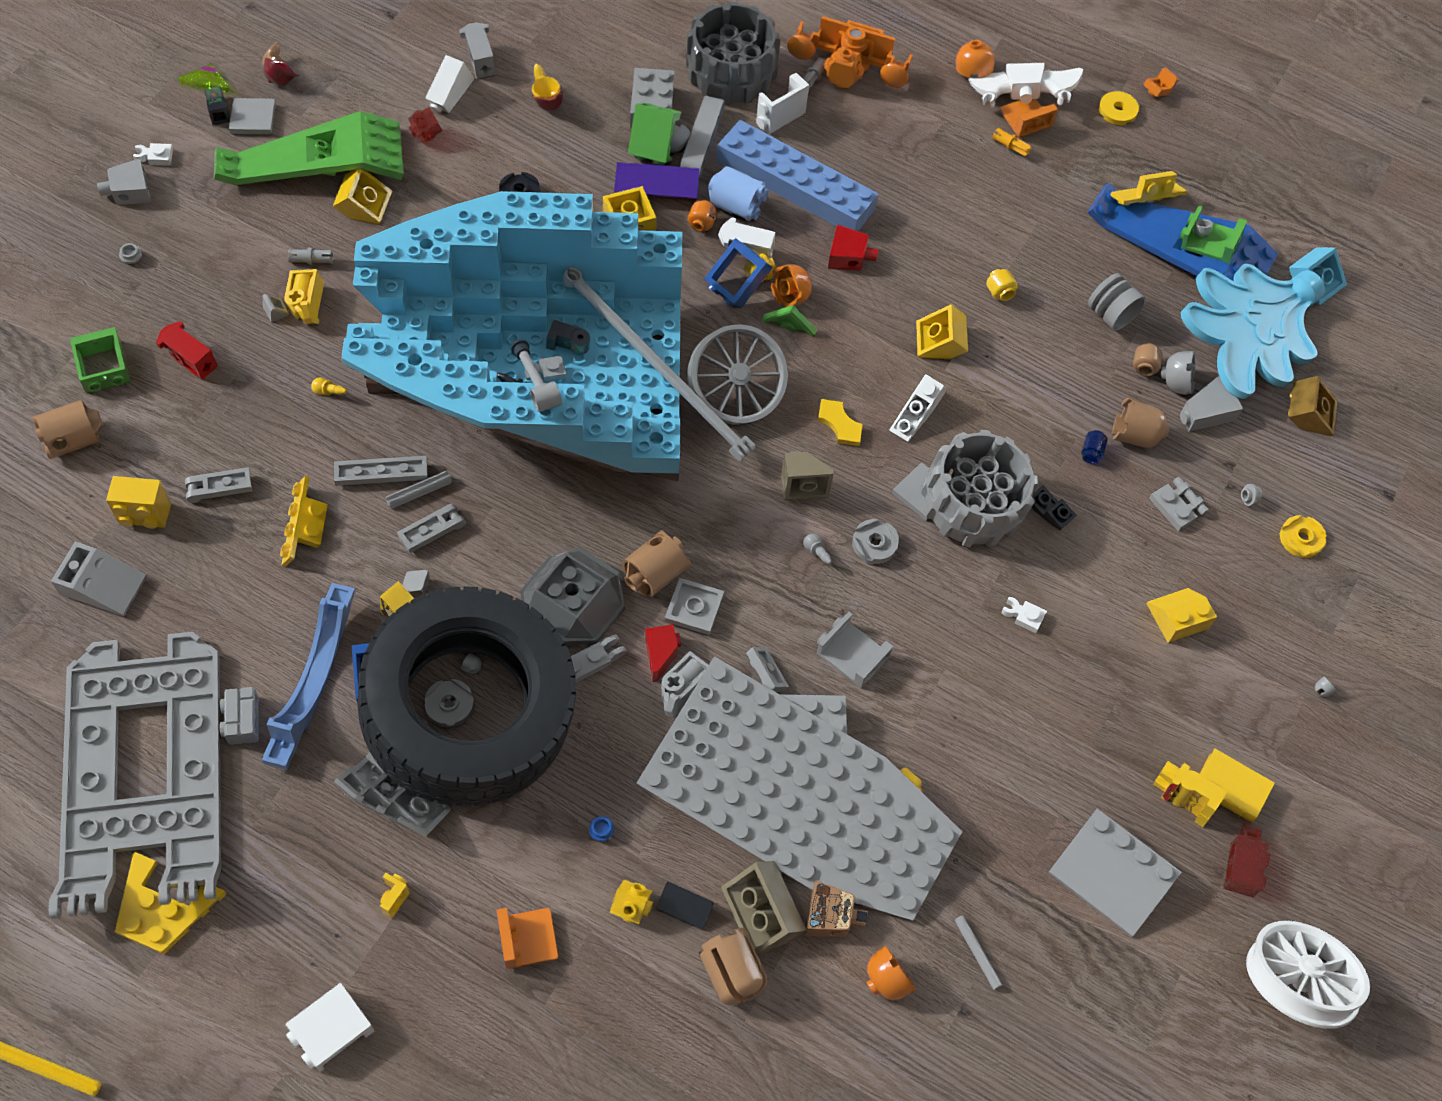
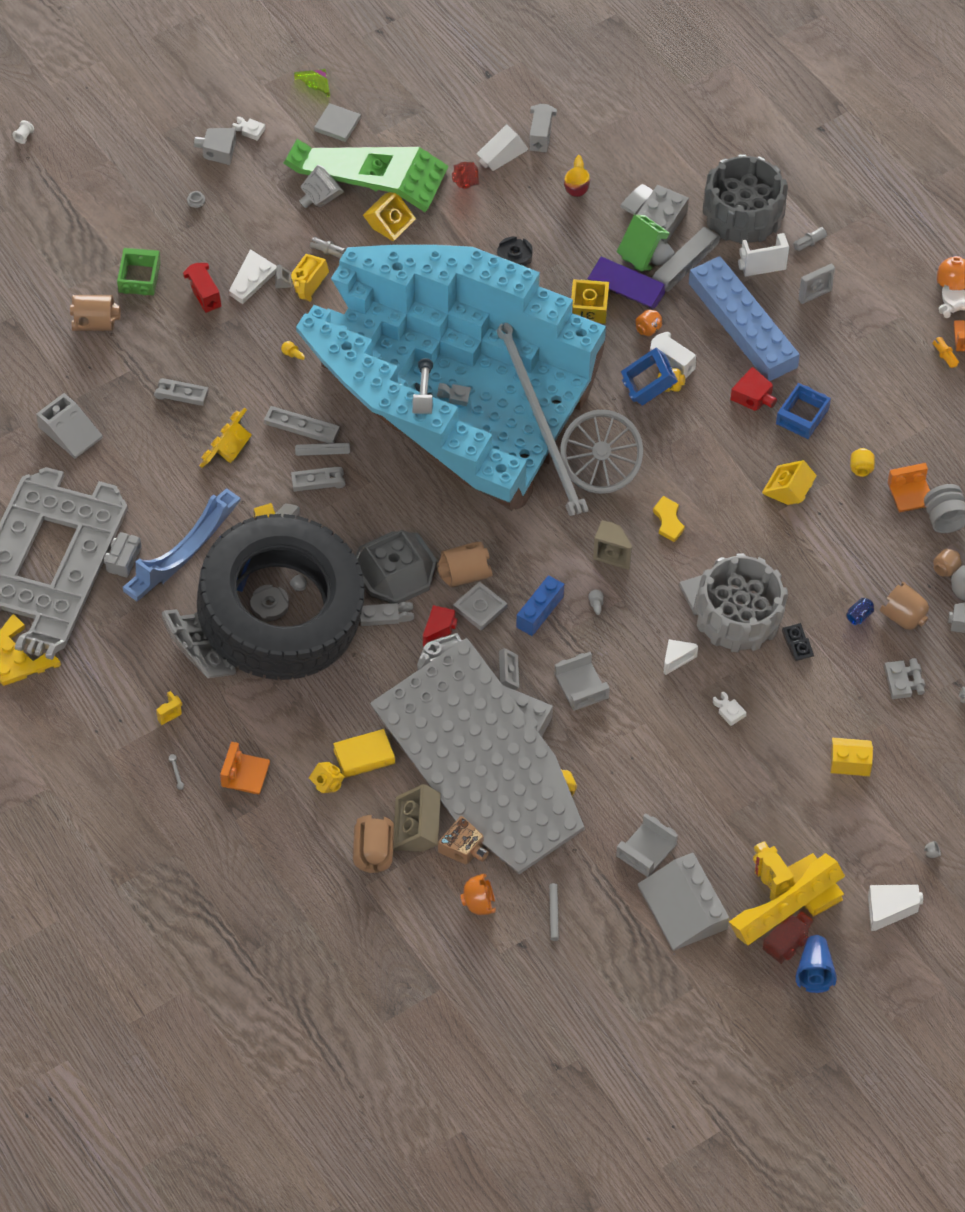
camera: 30 degrees right, 5 degrees down
(138, 502) = (119, 382): yellow brick -> none
(215, 104) = (313, 103): black leg -> none
(237, 319) = (251, 276): none -> white wing
(269, 193) = (319, 188): none -> light grey torso
(276, 68) = (373, 88): dark red hair -> none
(328, 1027) = (87, 769): white panel -> none
(427, 959) = (172, 758): none -> light grey hinge
(568, 337) = (482, 375): black leg -> none
(601, 829) = (332, 725): blue plate -> none
(619, 91) = (636, 199): none -> light grey slope
(657, 848) = (364, 753): none -> yellow piece
(685, 905) = (363, 797): black slope -> none
(737, 193) = (685, 314): light blue cylinder -> none
(761, 578) = (540, 605): none -> blue brick
(790, 319) = (674, 428): bright green tile -> none
(791, 285) = (688, 401): orange cylinder -> none
(851, 115) = (816, 283): none -> light grey tile
(853, 51) = (850, 231): orange piece -> none
(872, 553) = (643, 623): light grey plate -> none
(911, 268) = (797, 424): none -> blue window
(918, 408) = (736, 530): white slope -> none
(937, 573) = (678, 654): none -> white slope
(1034, 819) = (648, 846): none -> light grey panel
(1062, 294) = (909, 486): none -> orange bracket
(1207, 864) = (757, 921): none -> yellow arch
(1298, 883) = (816, 966): none -> blue cone
(1307, 974) = (755, 1006): white wheel -> none
(1325, 771) = (892, 903): none -> white slope

